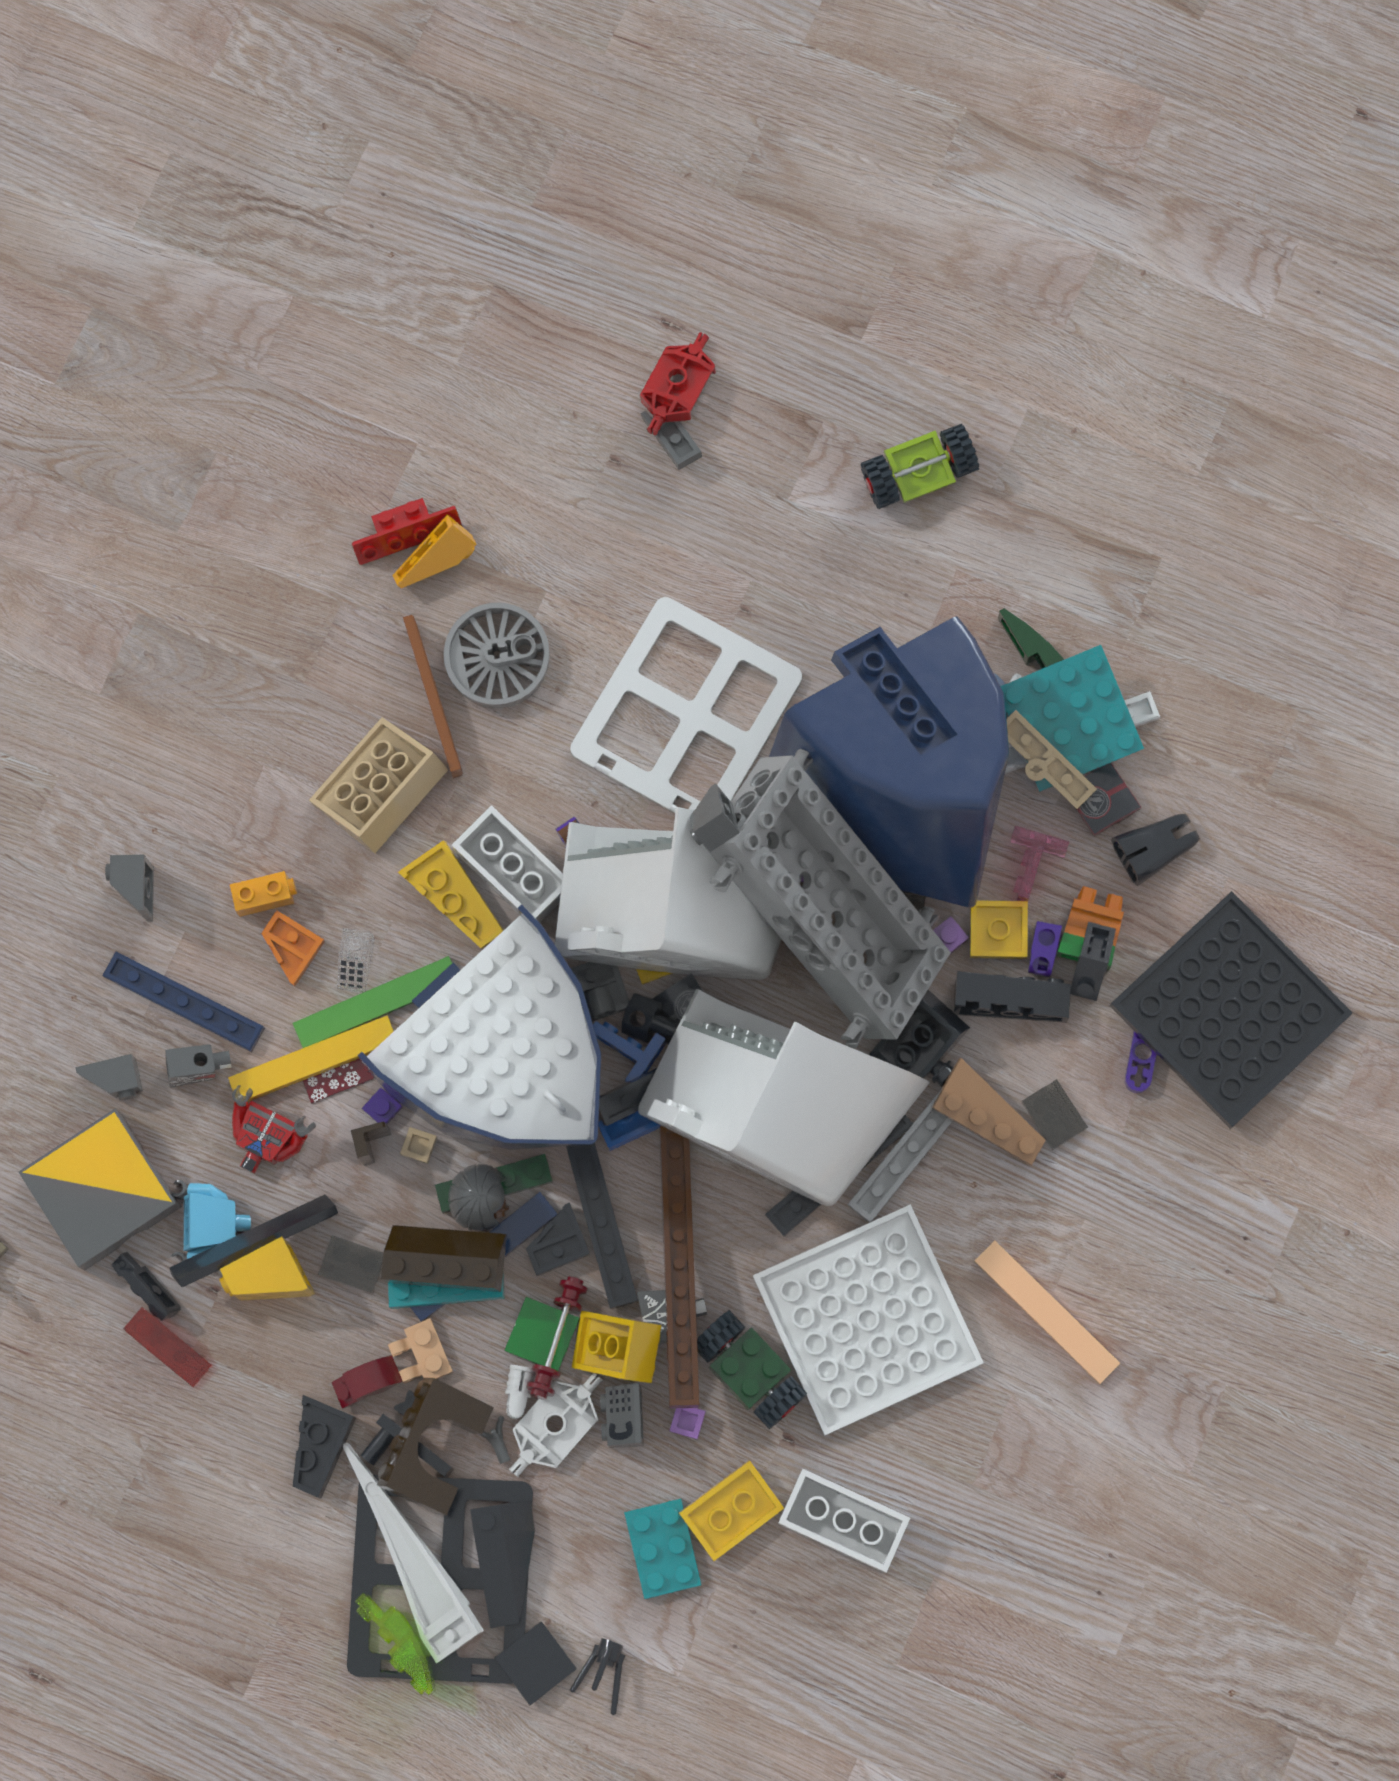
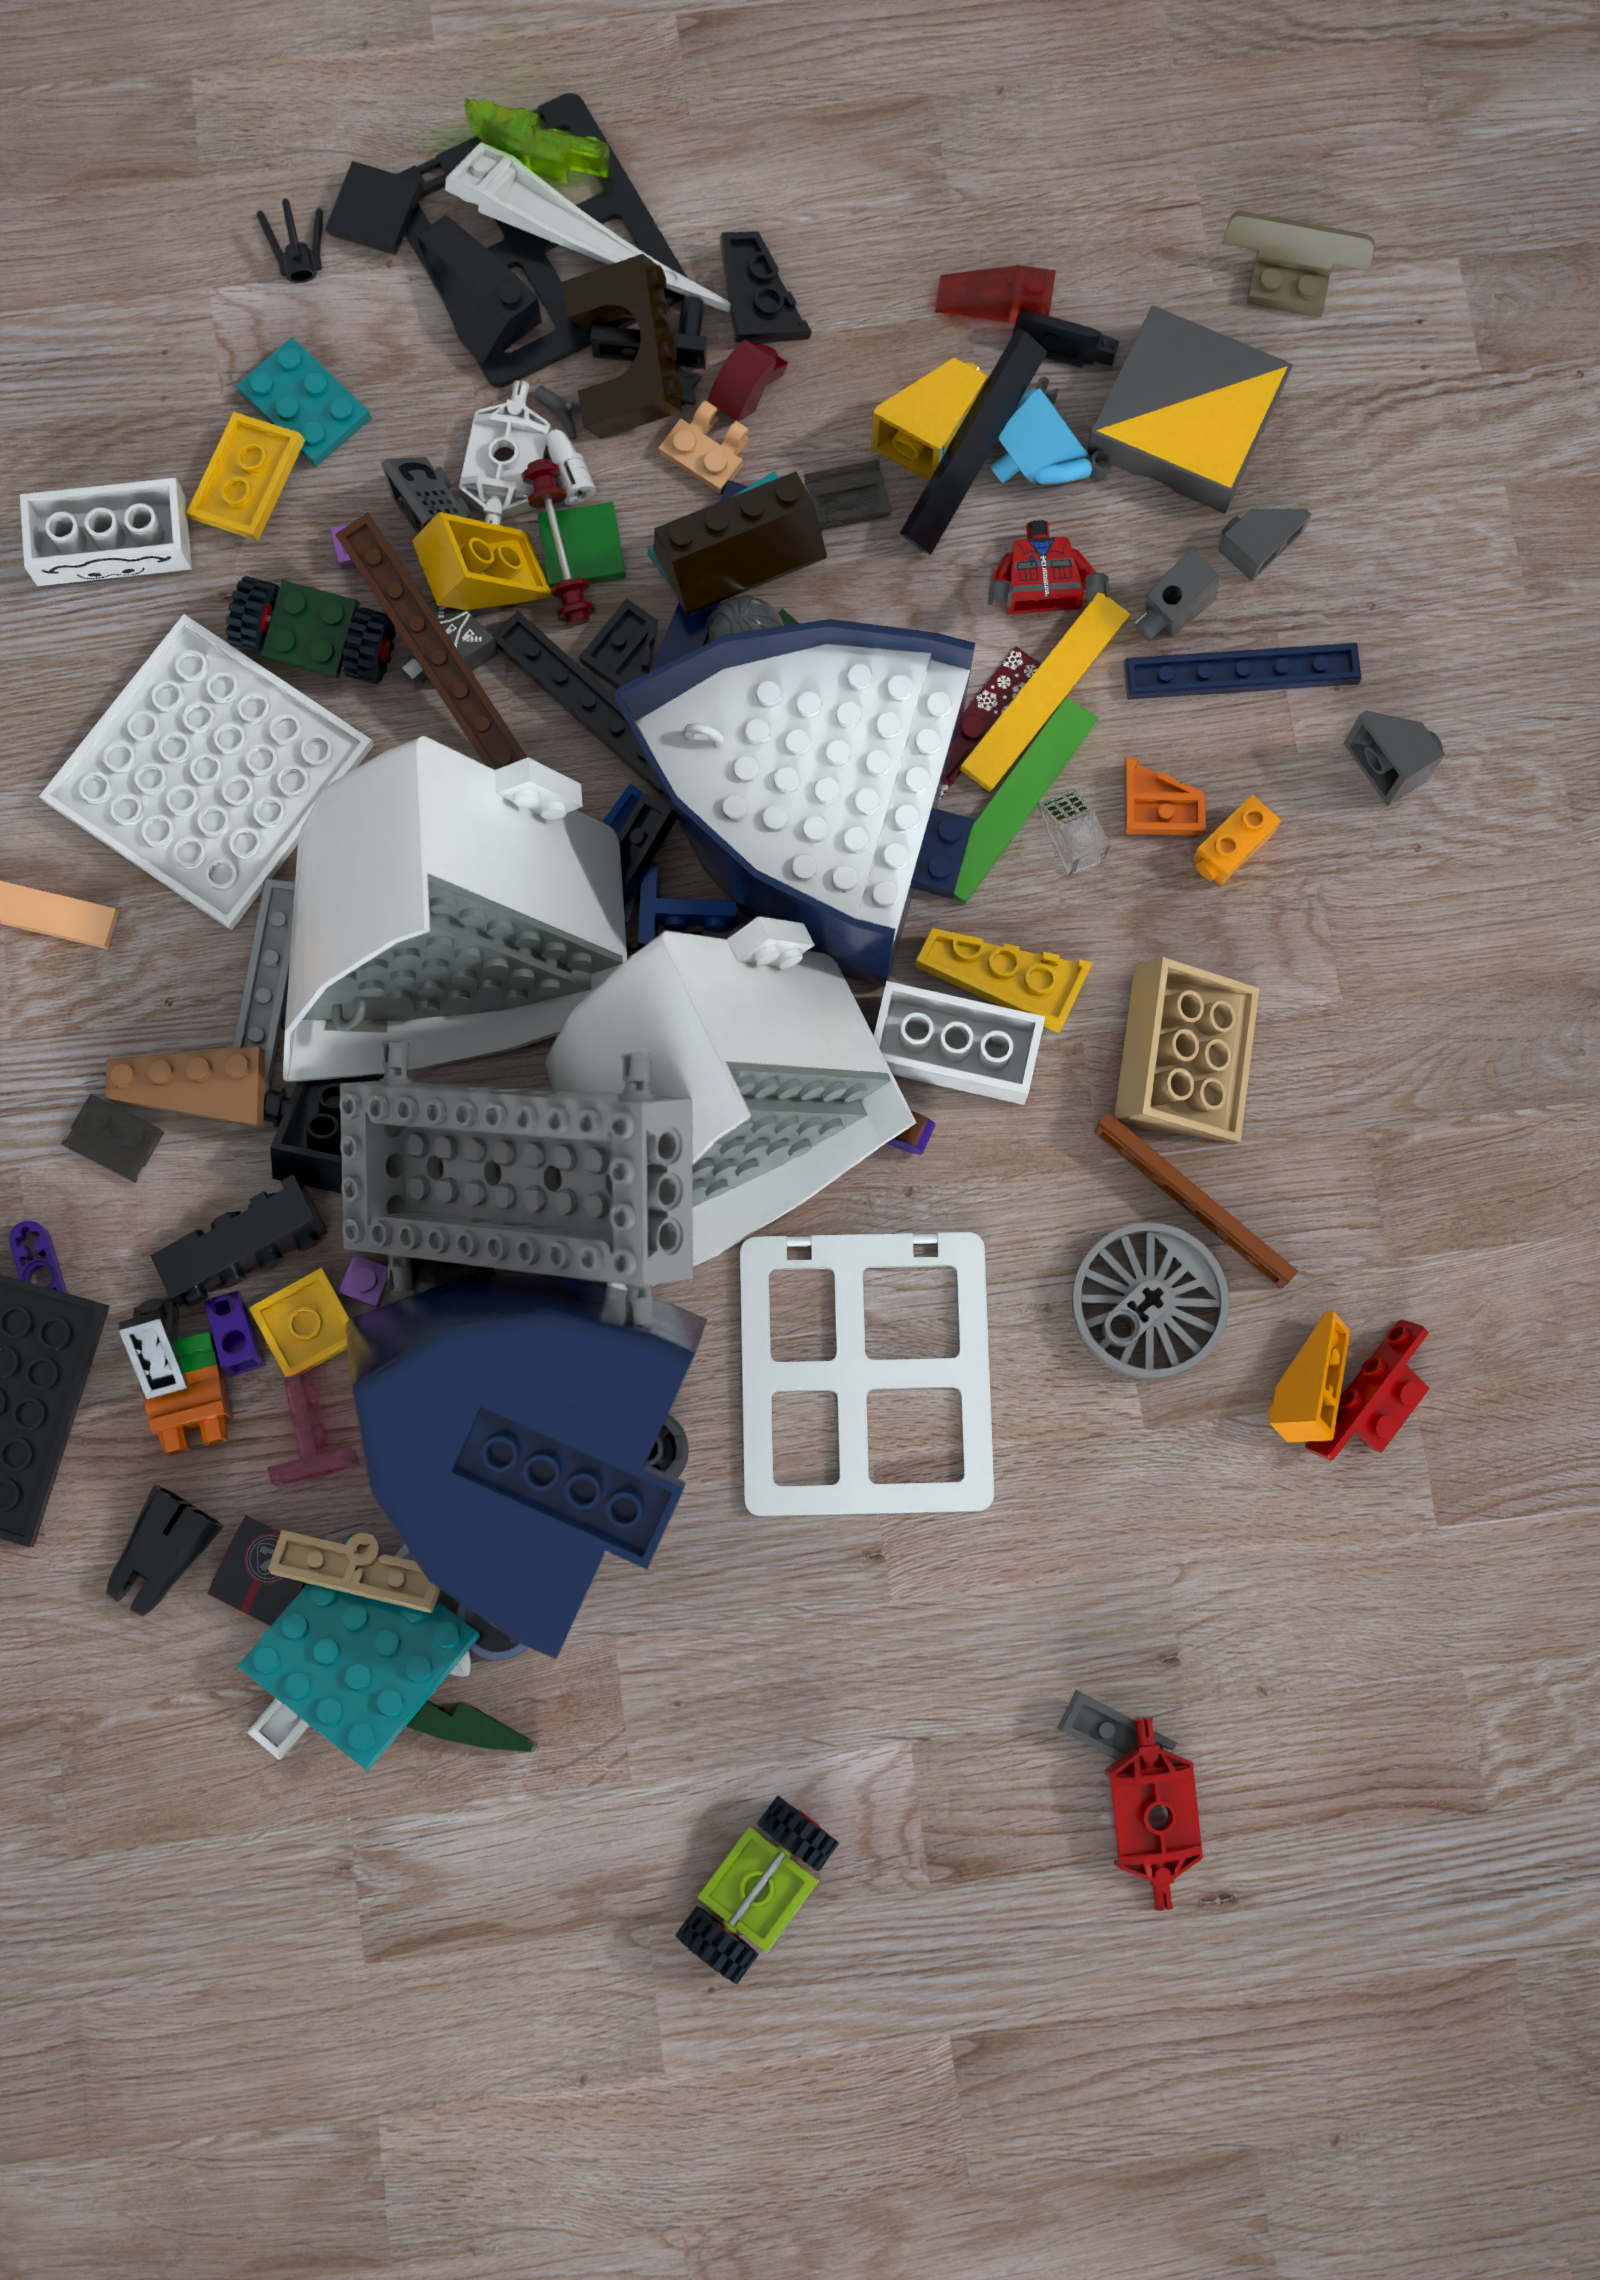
camera: 140 degrees right, 0 degrees up
(362, 1138) = (918, 611): dark brown panel -> none
(714, 819) = (691, 1132): dark grey slope -> none

